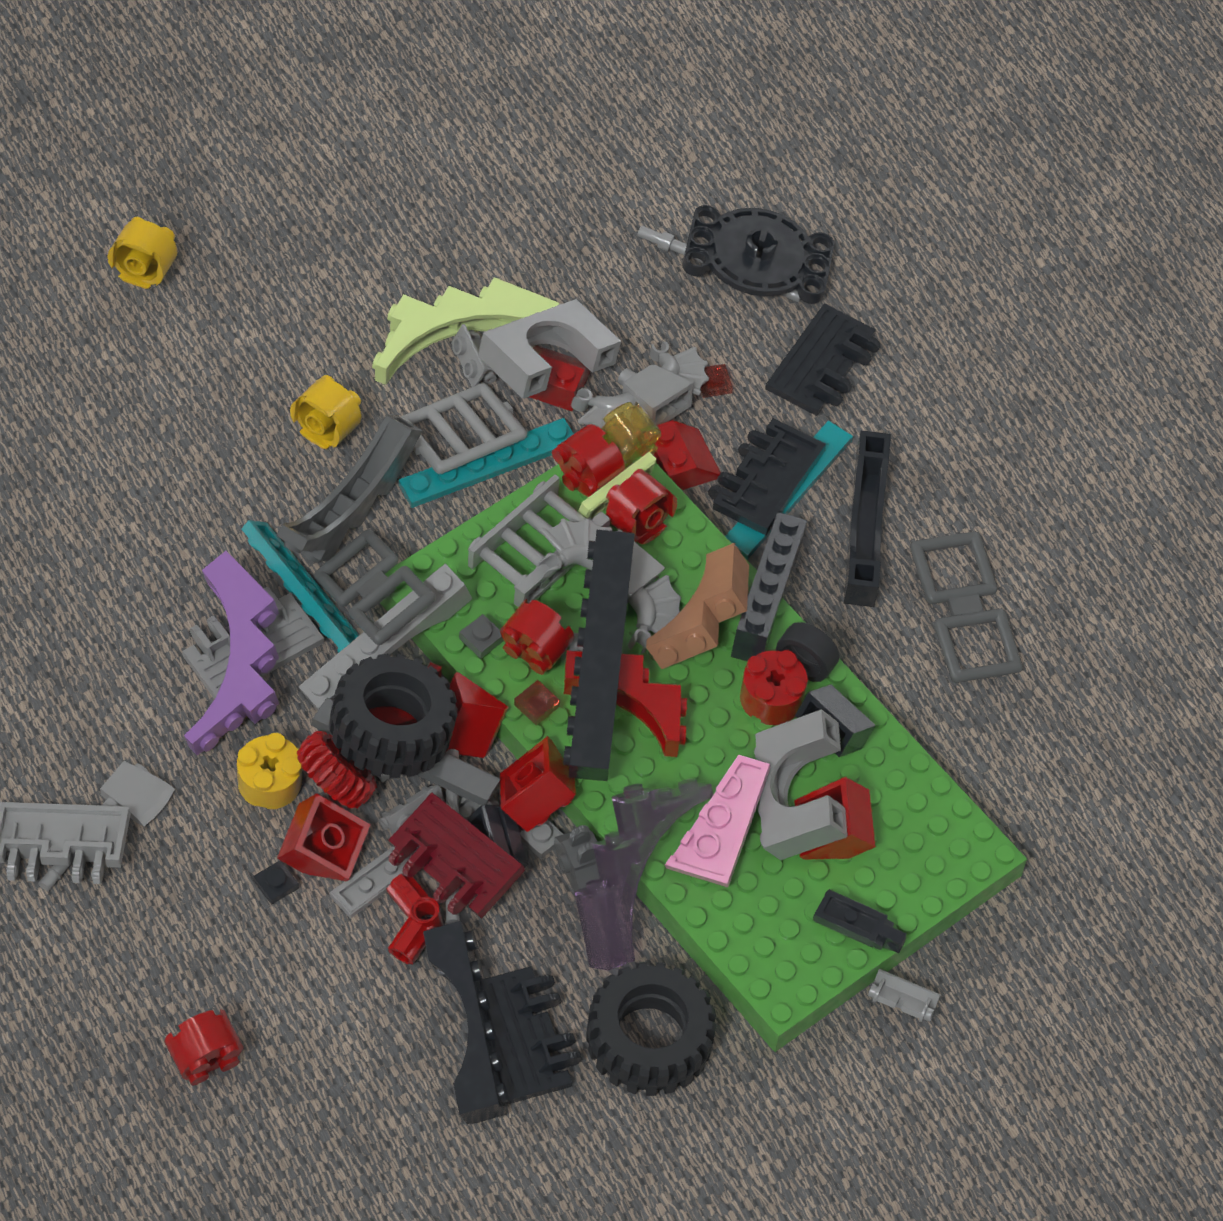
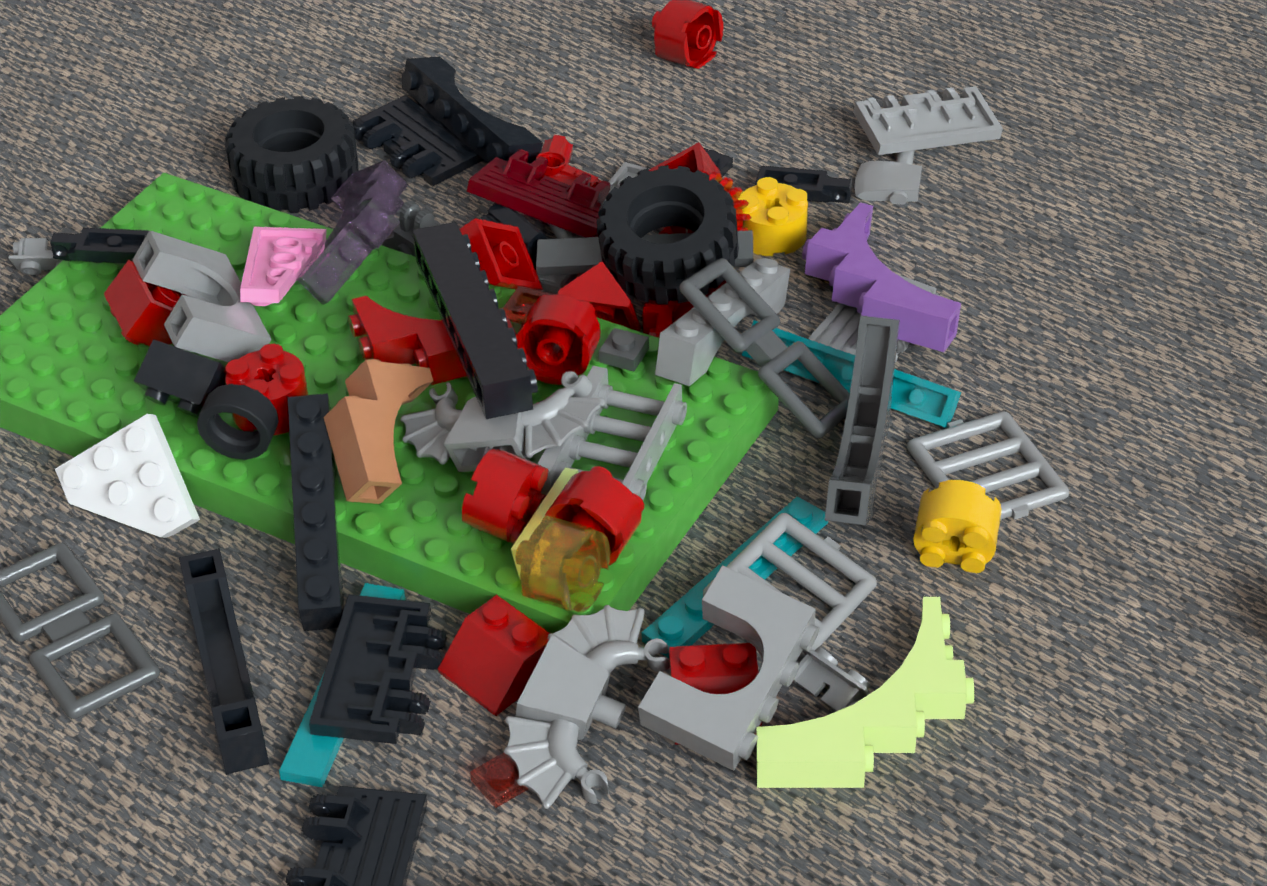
camera: 165 degrees right, 15 degrees down
(217, 815) = (815, 182): none -> black hinge
(223, 489) = (1017, 442): none -> light grey bar
(894, 696) = (131, 480): none -> white plate

